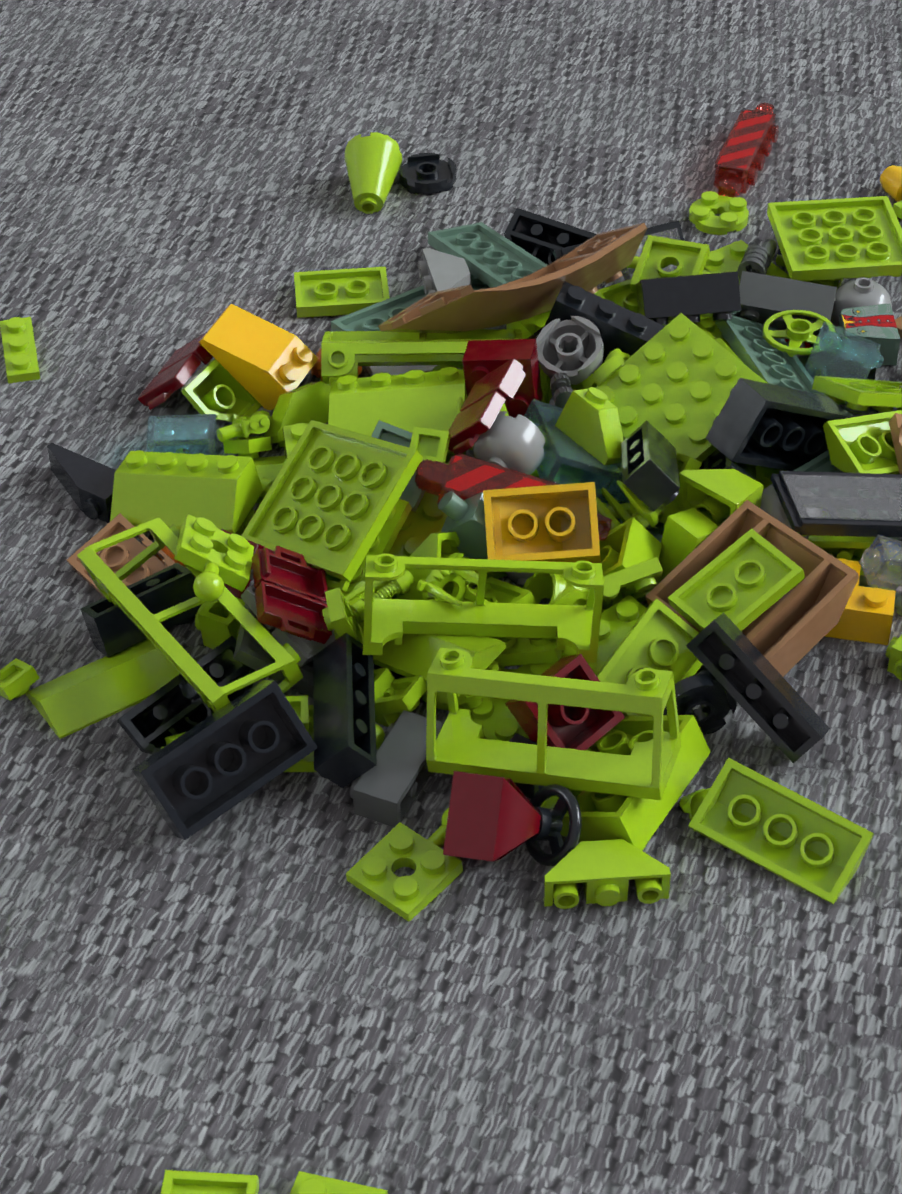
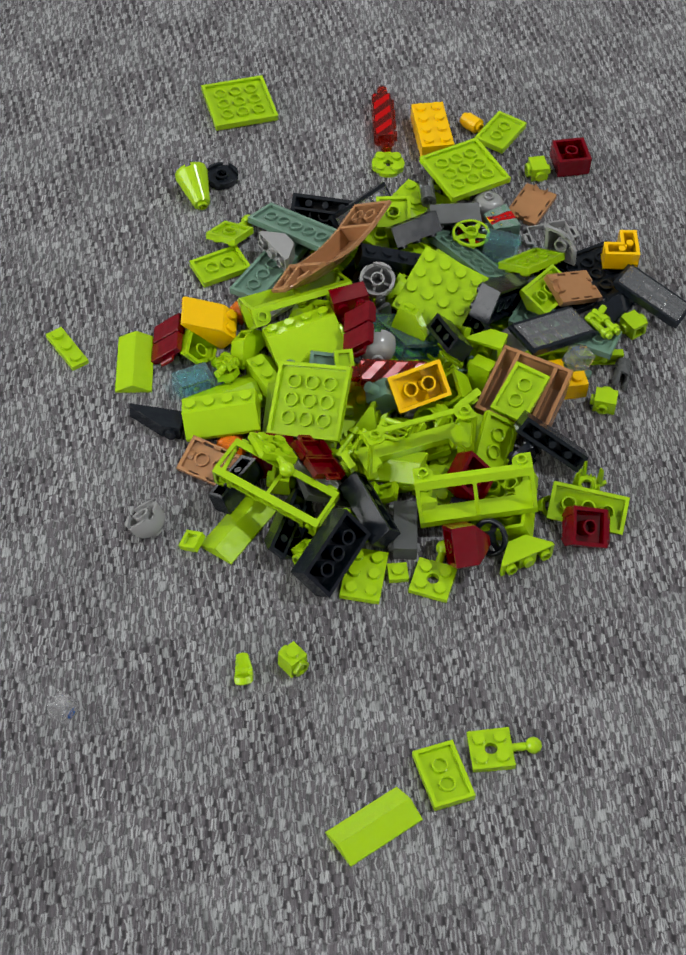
camera: 25 degrees left, 10 degrees up
(50, 927) = (293, 660): none -> lime brick
(110, 396) = (134, 363): none -> lime slope
(280, 826) = (365, 577): none -> lime plate
(346, 839) = (397, 572): none -> lime plate
(386, 248) = (231, 232): none -> lime plate
(520, 86) = (239, 102): none -> lime plate
(759, 864) = (586, 527): none -> dark red slope
(822, 168) = (431, 127): none -> yellow brick
(826, 790) = (581, 477): none -> lime piece

